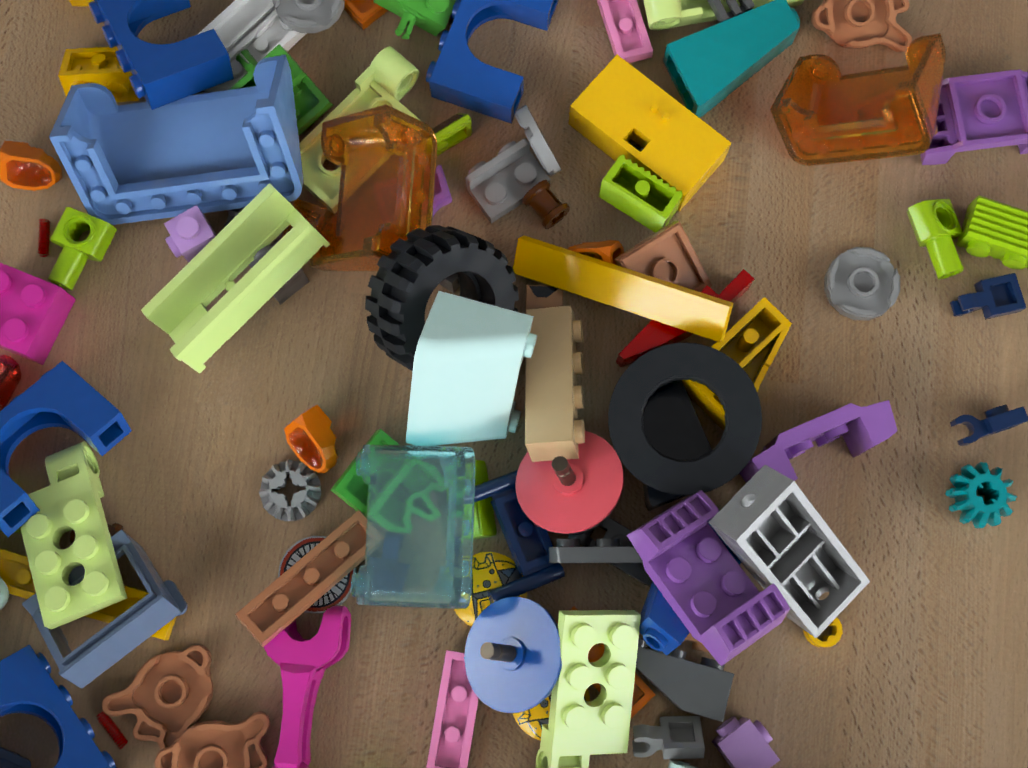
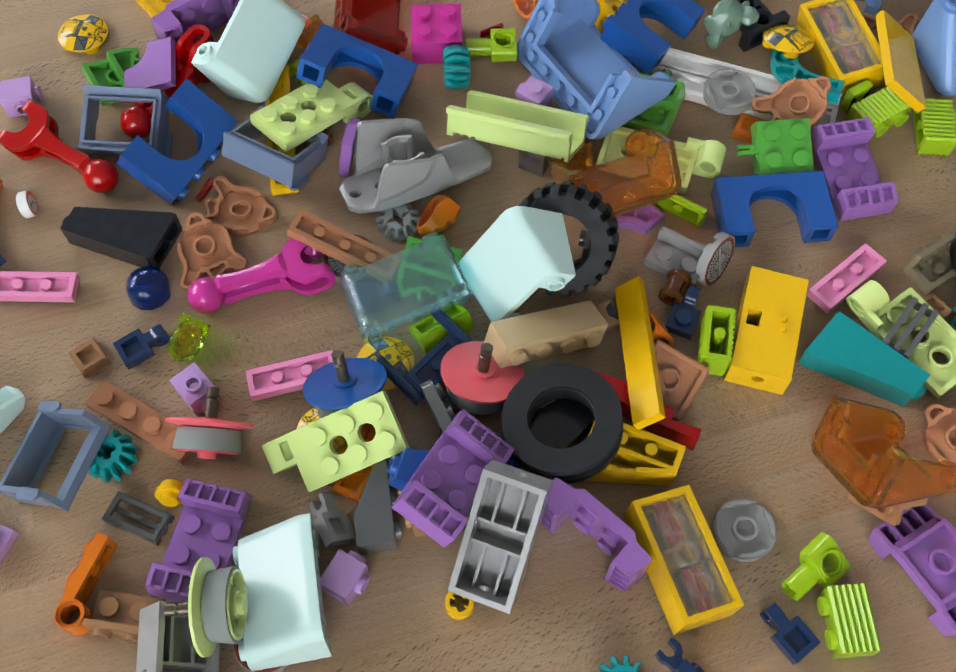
camera: 65 degrees right, 15 degrees down
(92, 312) = (456, 67): none -> teal gear
(148, 506) = (347, 147): none -> medium lavender tile
(221, 444) = (401, 166): none -> light grey piece
(586, 214) = (683, 316): none -> dark blue plate
(876, 363) = (686, 561): none -> brick

